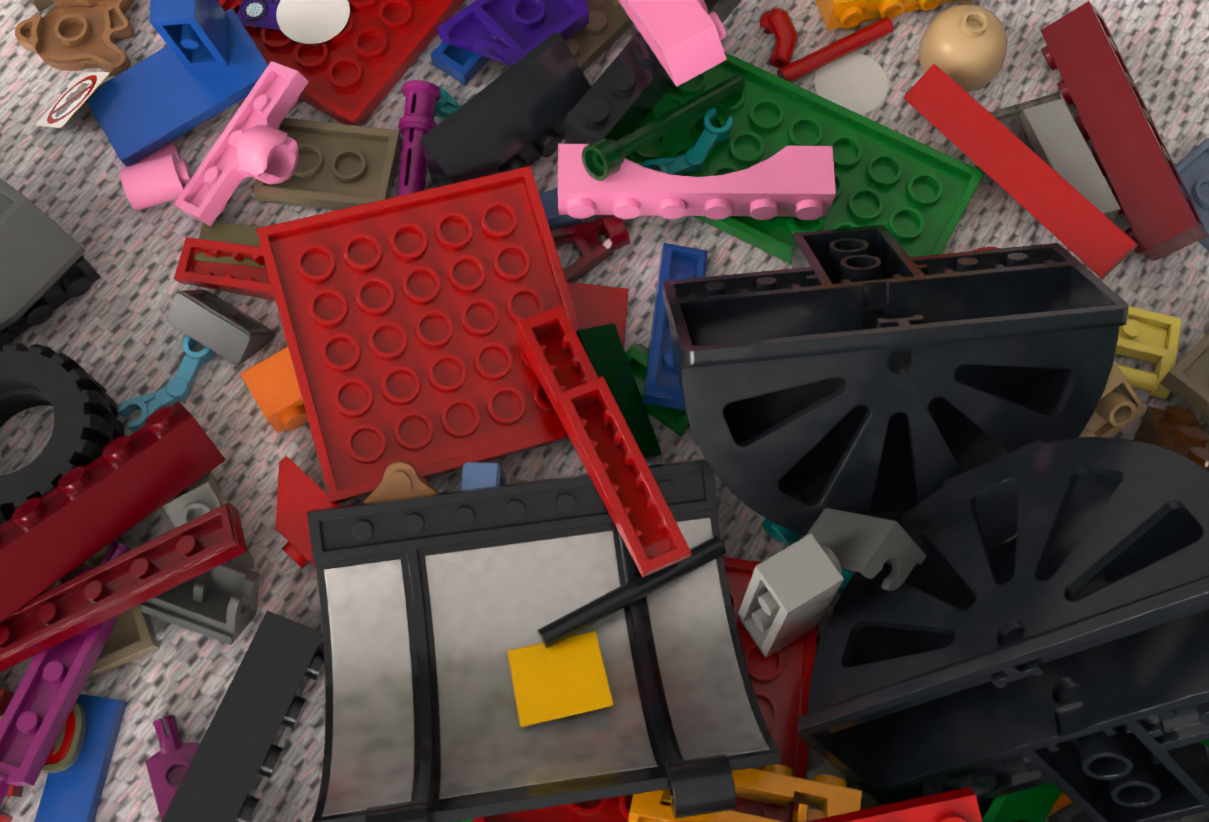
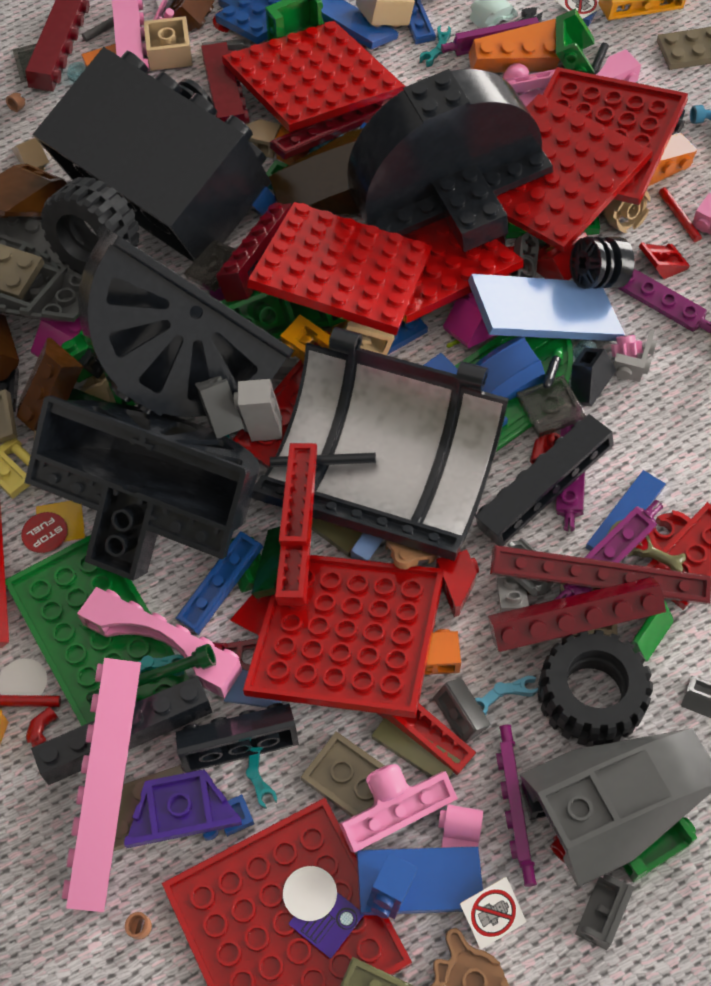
camera: 150 degrees left, 10 degrees down
(102, 250) = (515, 816): none -> magenta plate
(415, 123) = (289, 772): magenta pin -> none
(559, 679) = (378, 435): yellow sticker -> none

